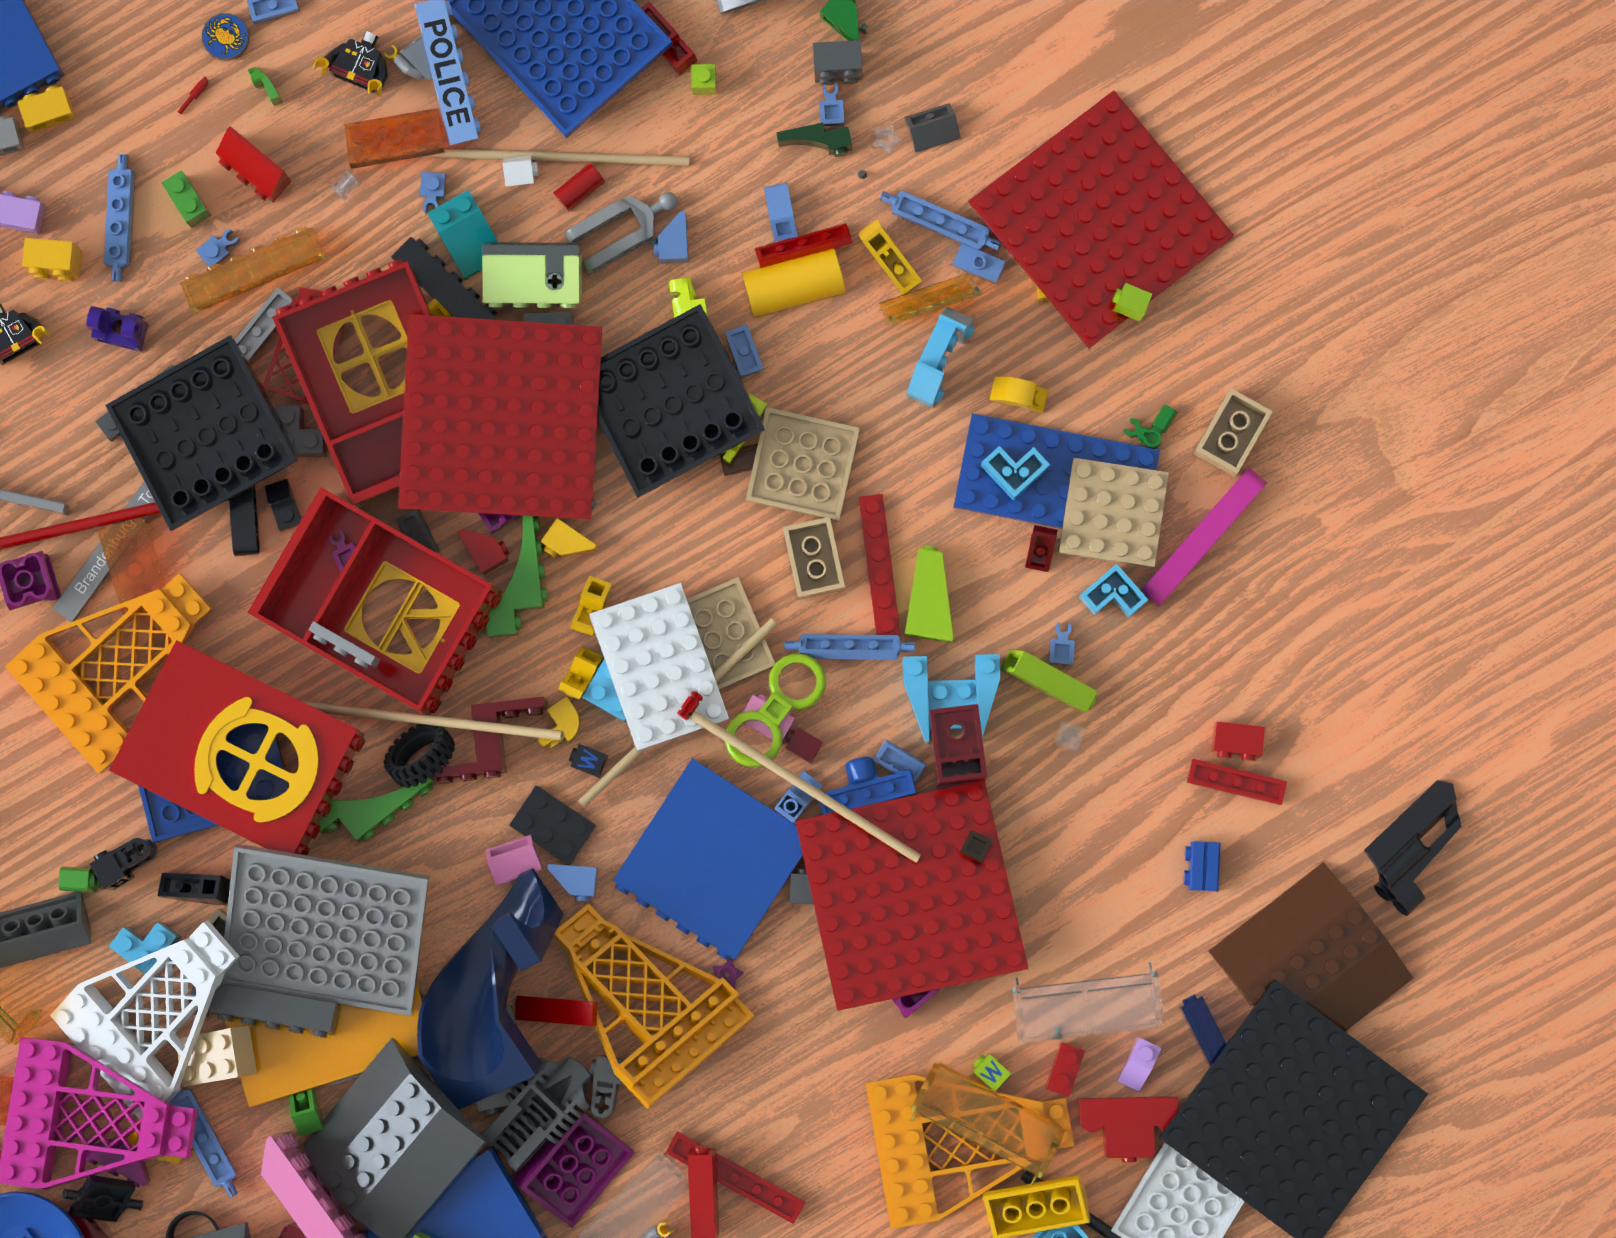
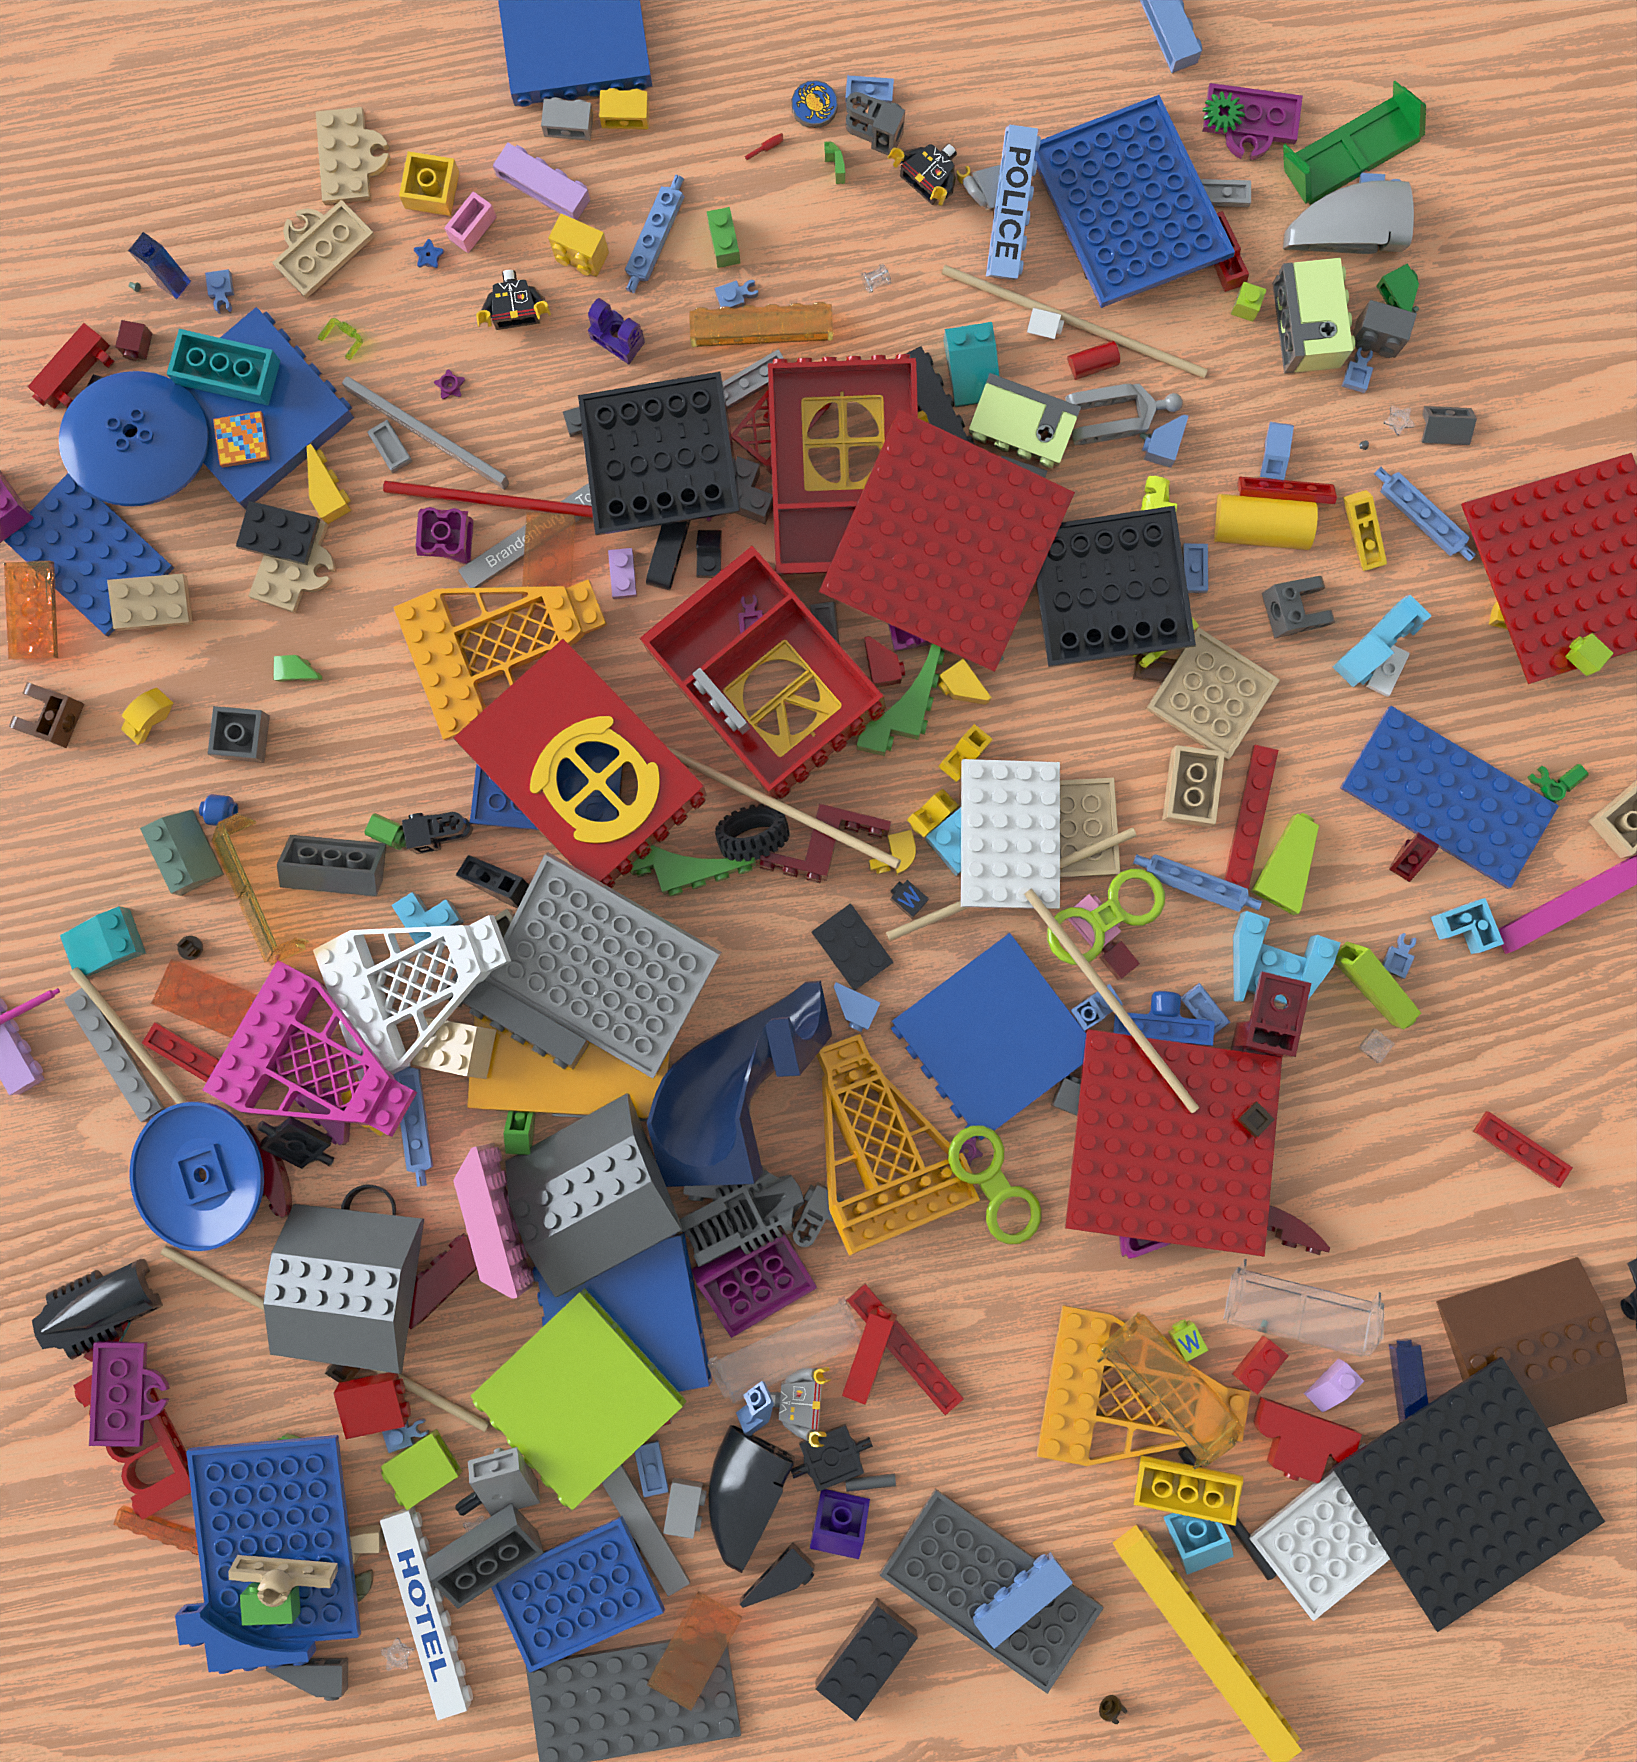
camera: 15 degrees right, 0 degrees up
(208, 553) = (622, 573): none -> lavender plate
(251, 166) = (796, 227): red slope -> none
(299, 36) = (883, 120): none -> dark grey brick
(394, 138) = (938, 251): clear orange plate -> none
(432, 187) = (955, 311): medium blue plate -> none
(512, 859) = (803, 965): bright pink brick -> none
(556, 1010) = (794, 1126): red tile -> none
(690, 705) = (1029, 881): red piece -> none
(762, 995) = (994, 1184): none -> lime bar
(766, 67) = (1313, 315): none -> yellowish green piece
(835, 141) = (1349, 403): dark green slope -> none
(842, 359) = (1286, 607): none -> dark grey brick
(929, 299) = (1389, 584): clear yellow slope -> none
(958, 380) = (1387, 673): none -> white plate
(978, 263) = (1446, 567): medium blue plate -> none
(1012, 476) = (1413, 776): medium azure brick -> none
(1018, 392) = (1444, 701): yellow brick -> none
(1051, 935) = (1294, 1231): none -> dark red slope
(1113, 512) = (1496, 848): tan plate -> none
(1203, 866) = (1462, 1218): blue brick -> none
(1238, 740) = (1538, 1109): red brick -> none

